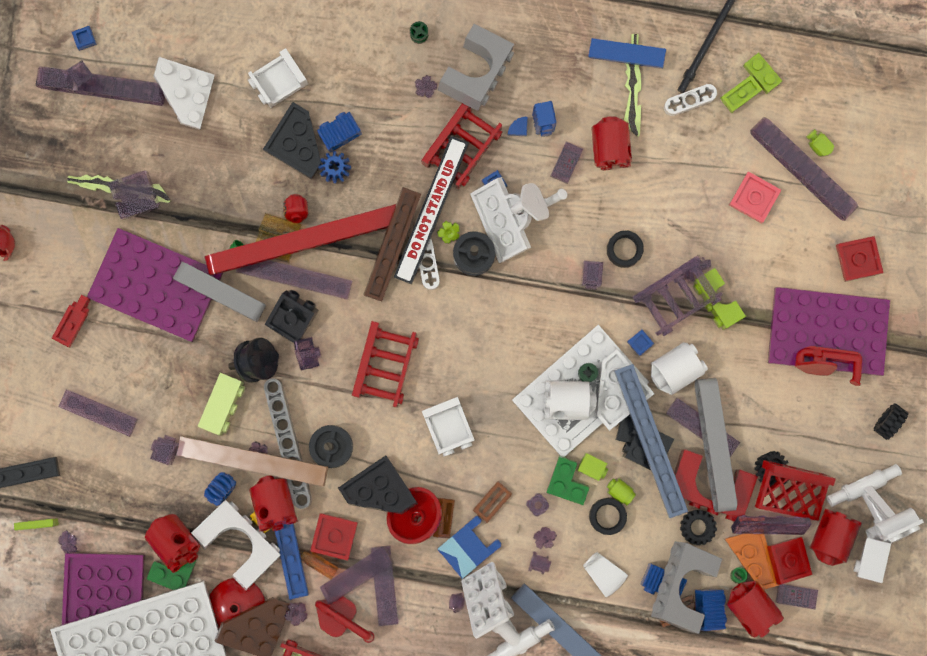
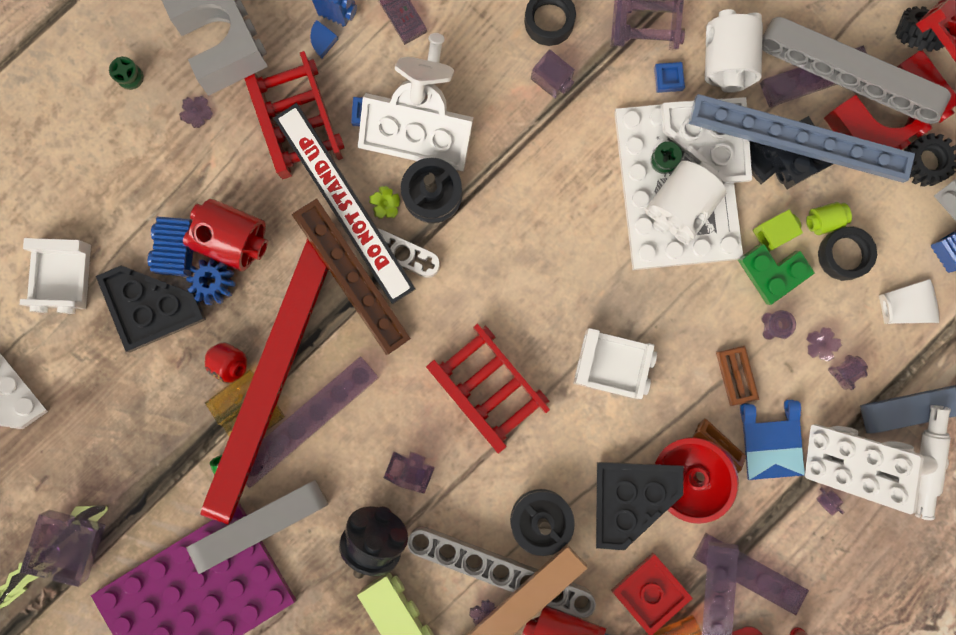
camera: 50 degrees left, 0 degrees up
(291, 316) = (350, 458): black plate -> none
(366, 158) = (226, 234): none -> red cylinder

